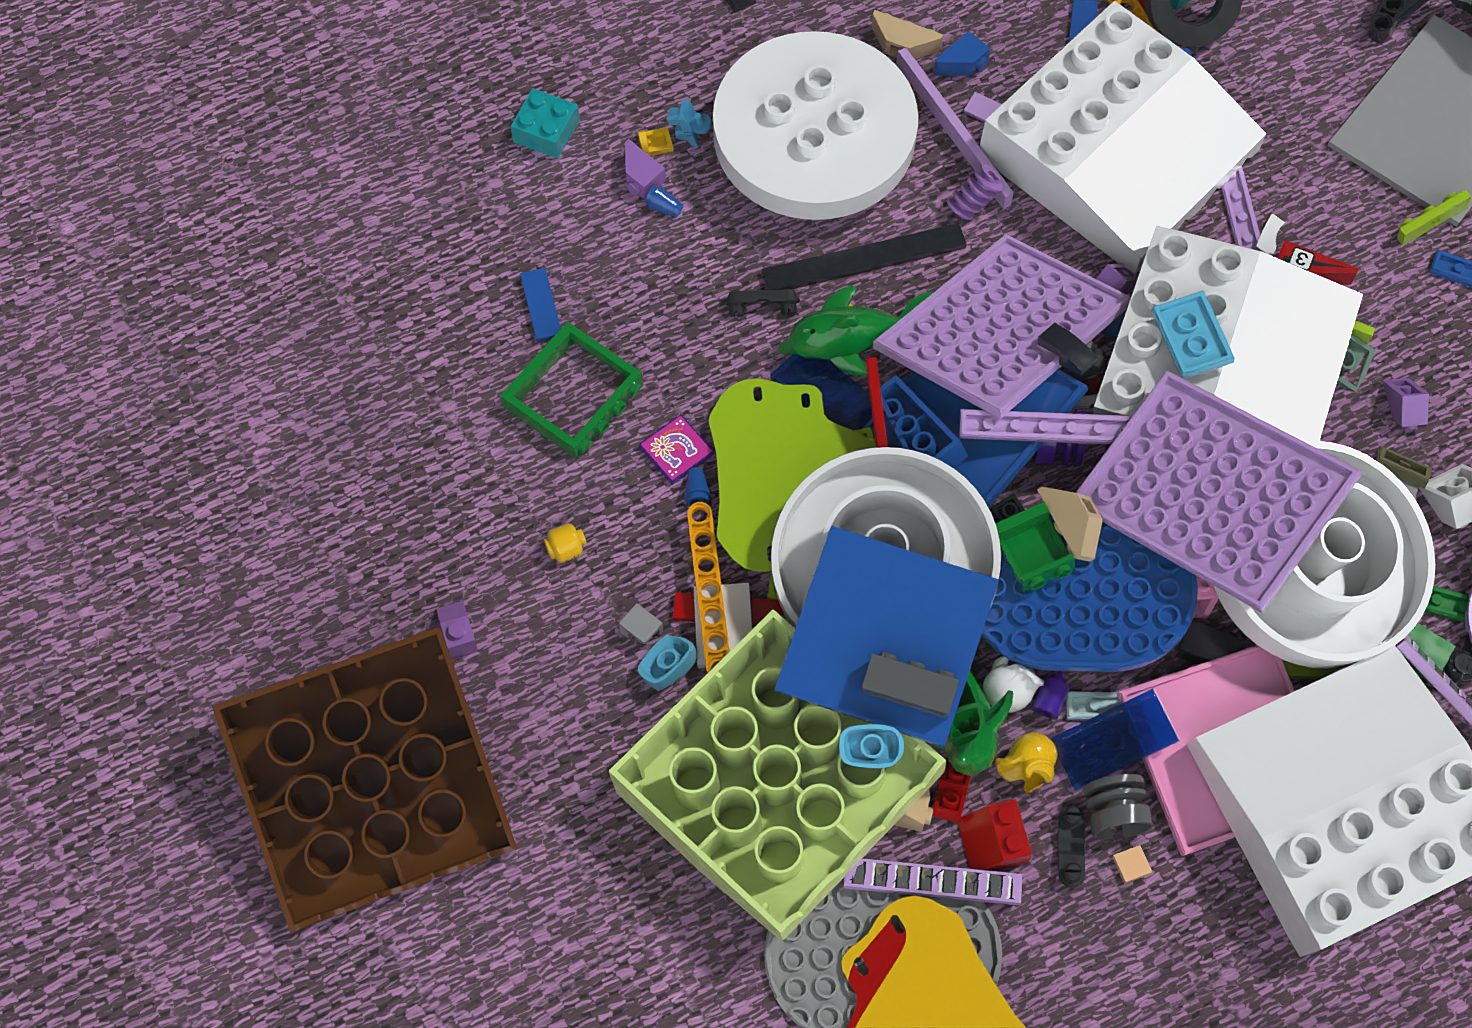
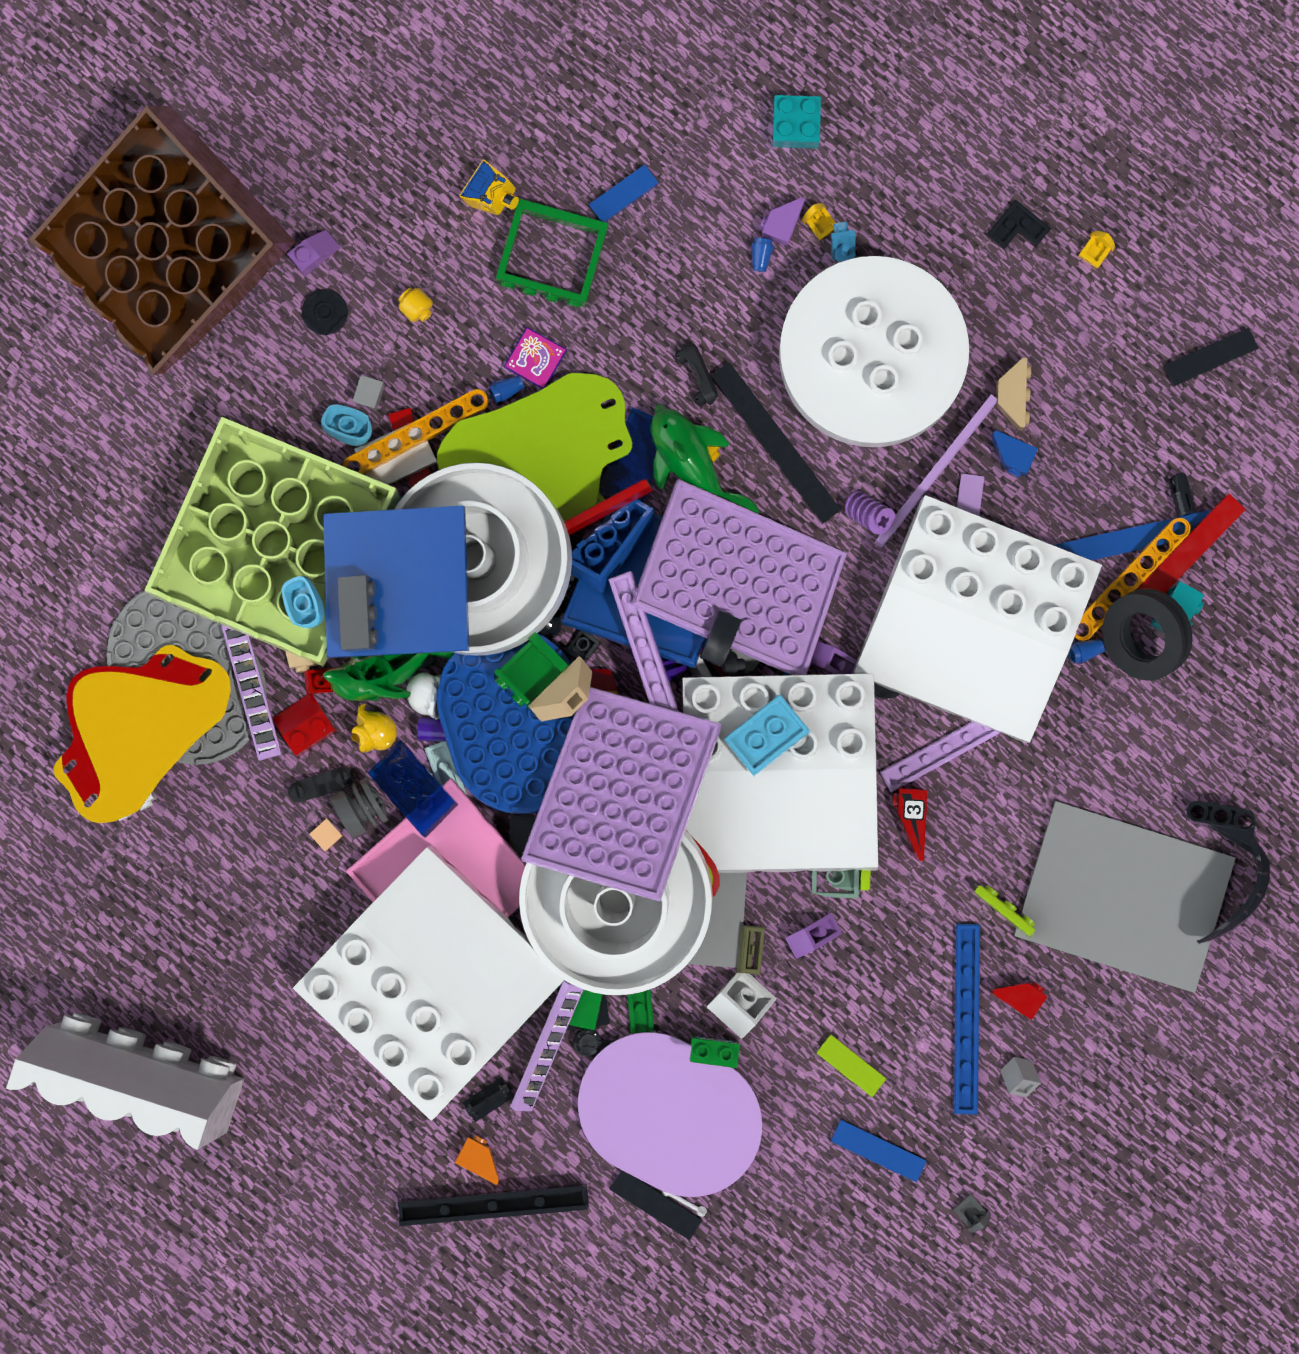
camera: 70 degrees right, 20 degrees up
(477, 422) = (489, 190): none -> torso
(522, 649) = (330, 318): none -> black tile
(1267, 239) = (931, 777): white sticker -> none

